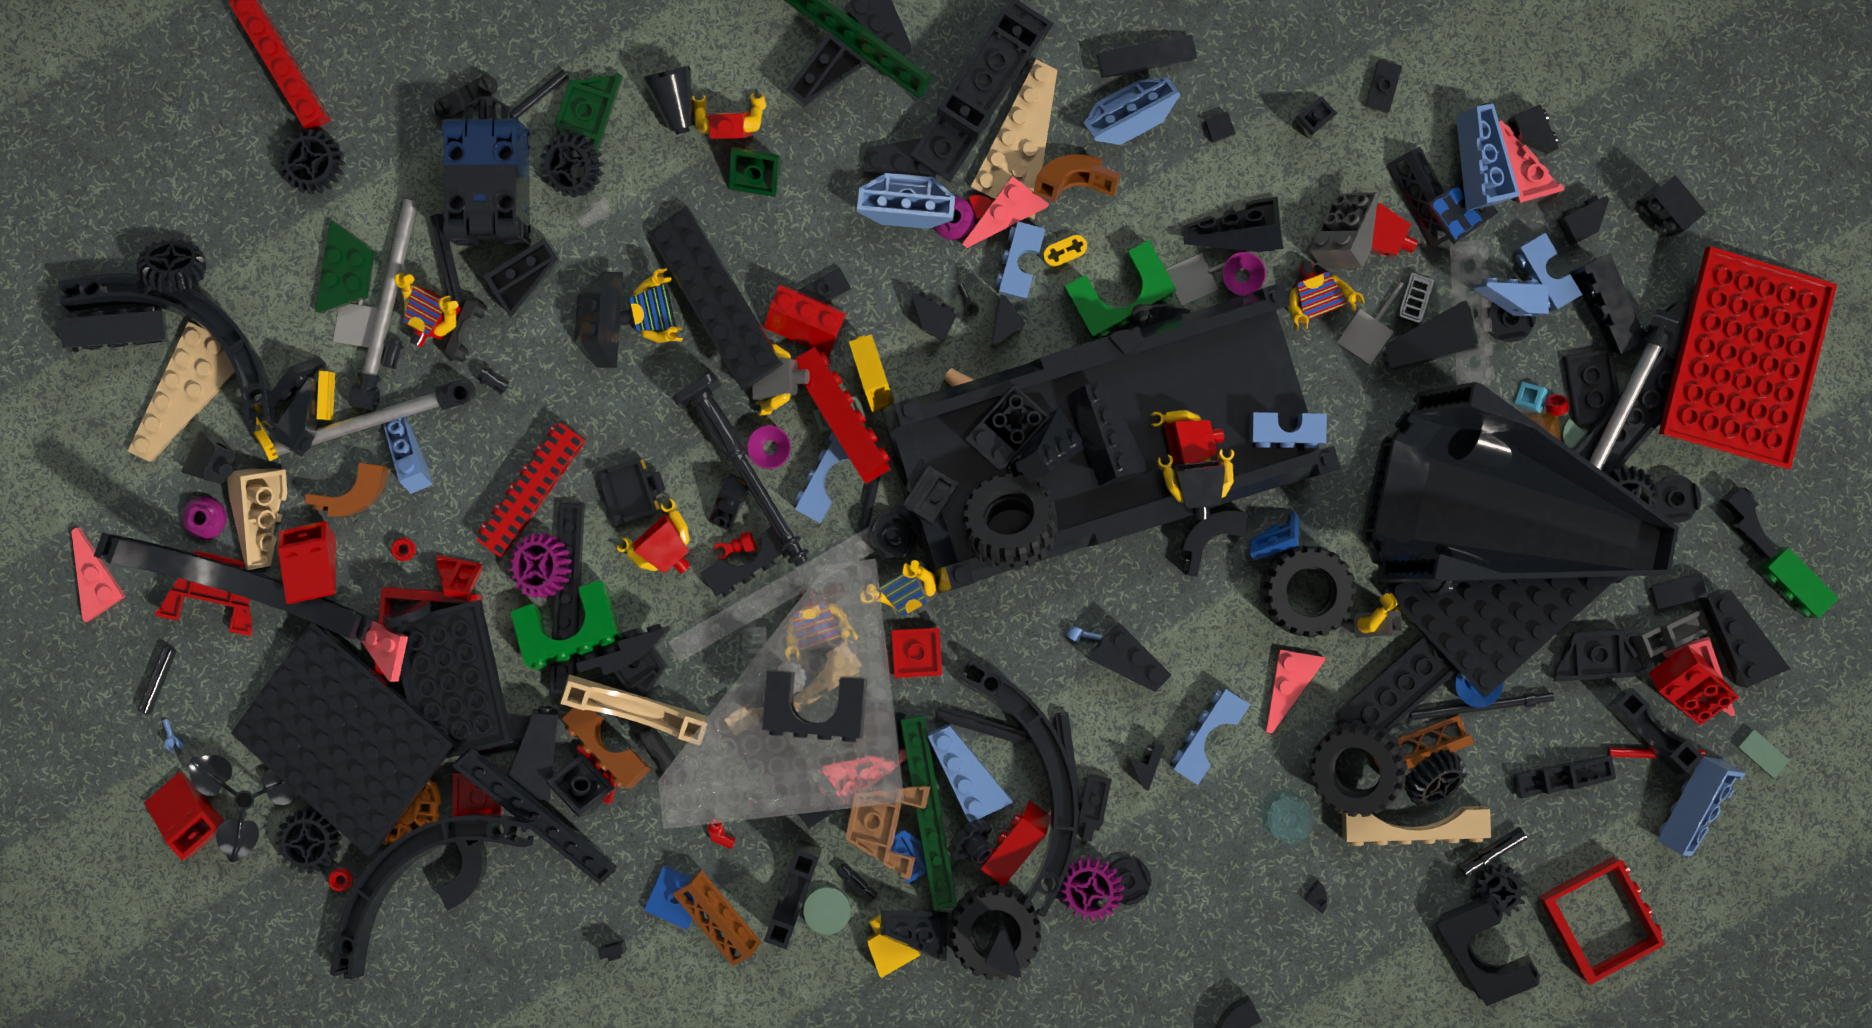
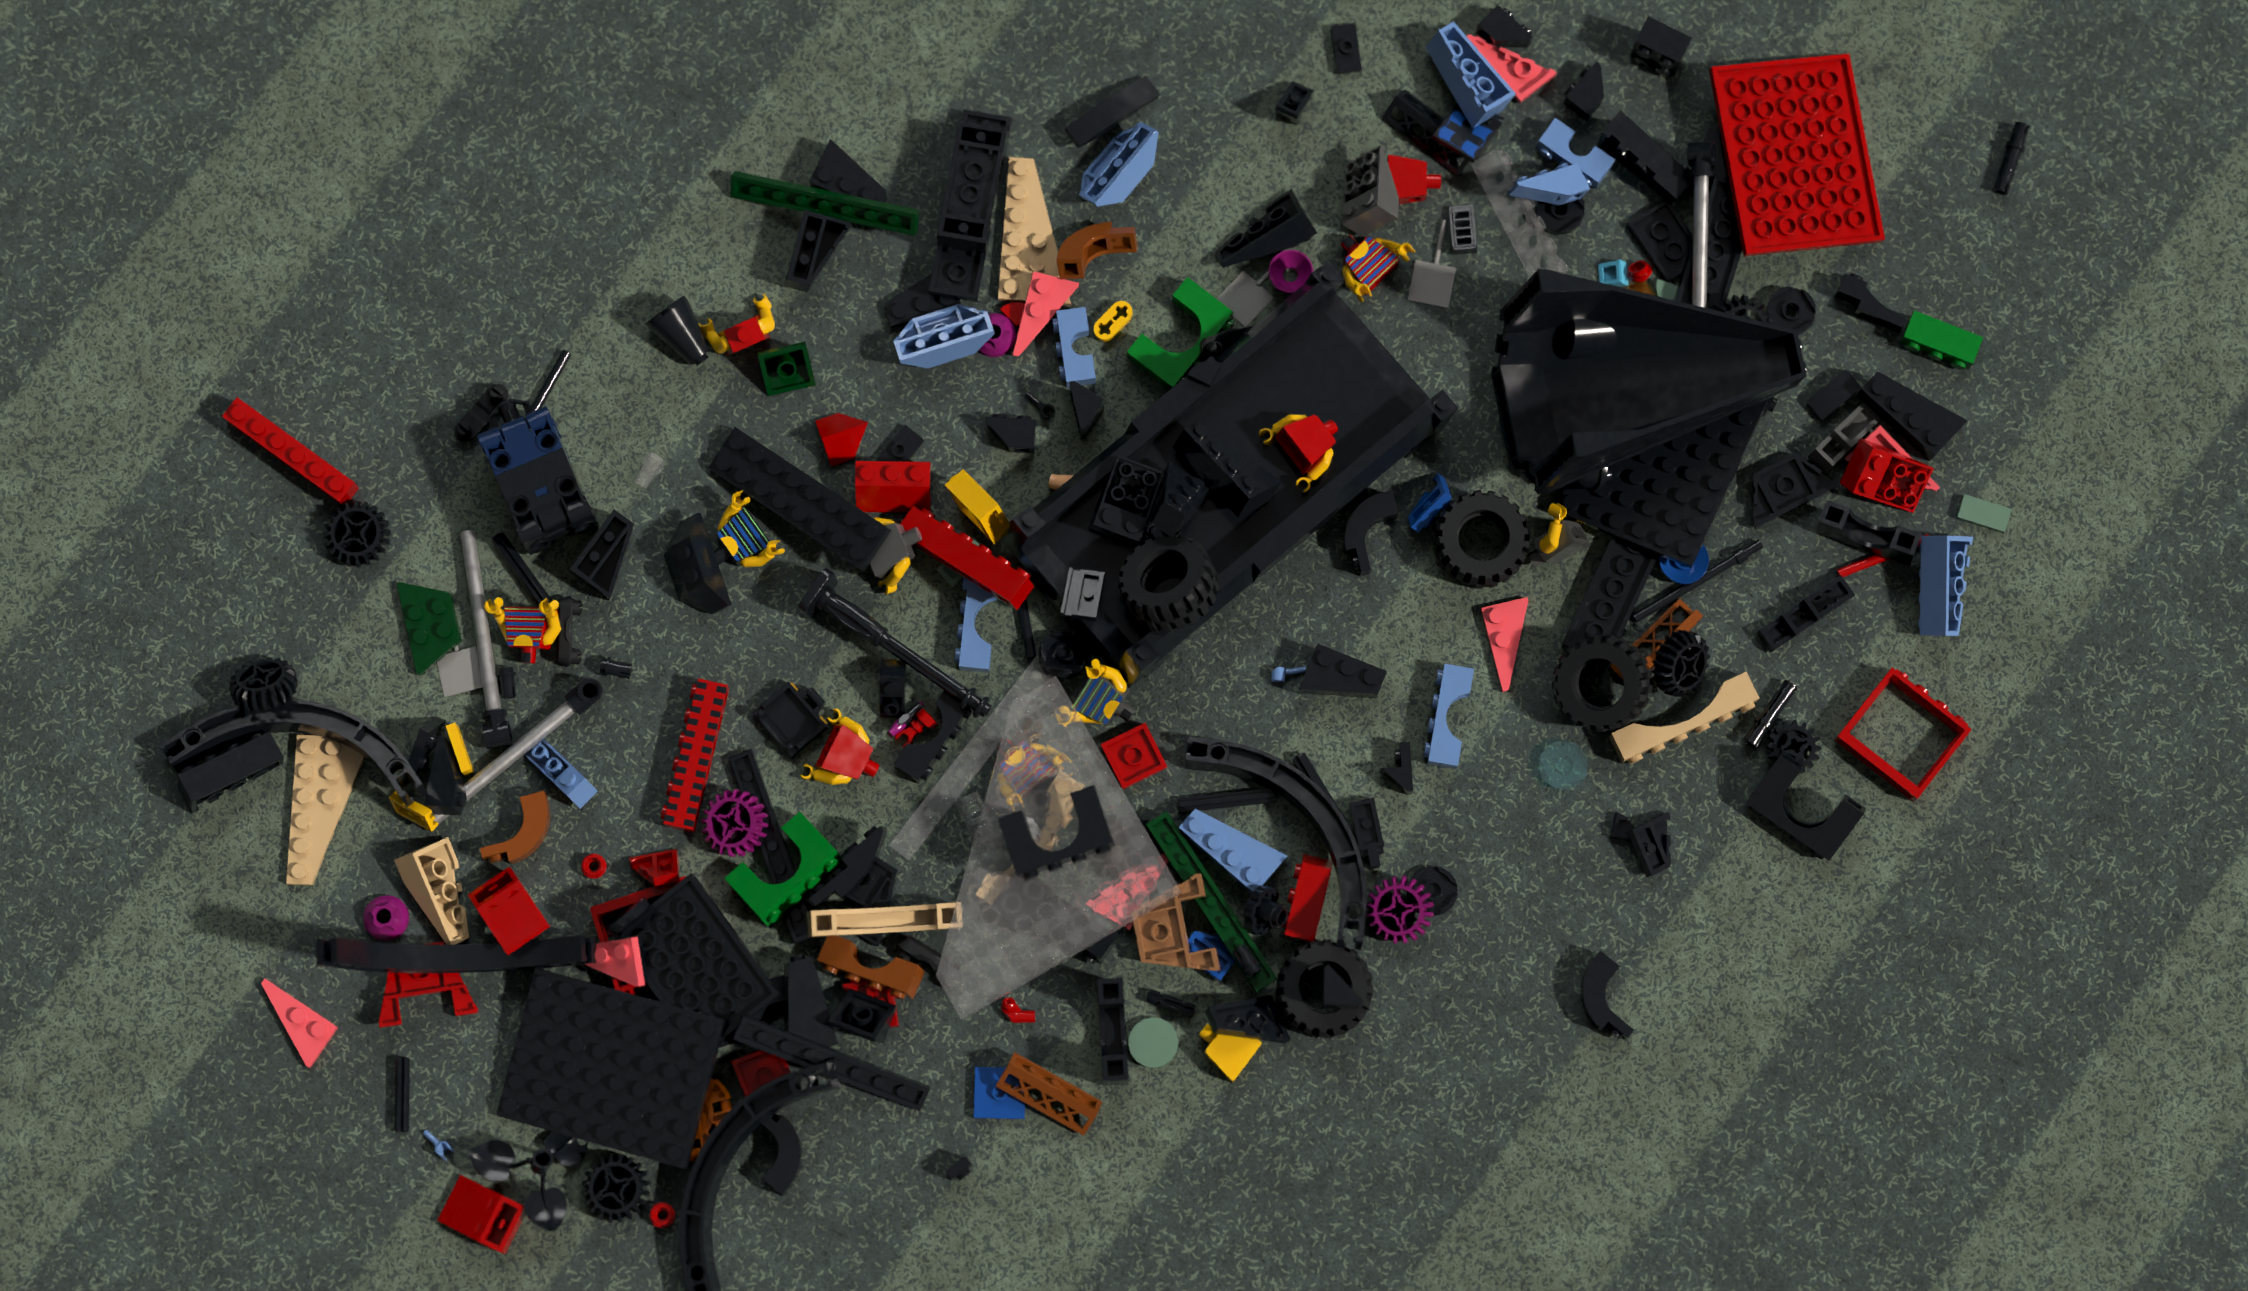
camera: 20 degrees left, 10 degrees down
(209, 458) = (372, 856): black torso -> none
(578, 181) = (617, 438): black gear -> none
(588, 106) = (602, 379): dark green wing -> none
(723, 537) = (901, 723): none -> piece
(757, 441) = (909, 606): magenta piece -> none
(777, 254) = (841, 436): none -> red slope
(936, 882) = (1247, 961): none -> black pin
(1199, 483) = (1330, 472): black torso -> none
(1219, 127) = (1209, 148): black tile -> none
(1266, 430) = (1374, 403): medium blue arch -> none
(1337, 923) = (1652, 844): none -> black wing
(1437, 338) = (1496, 256): black slope -> none

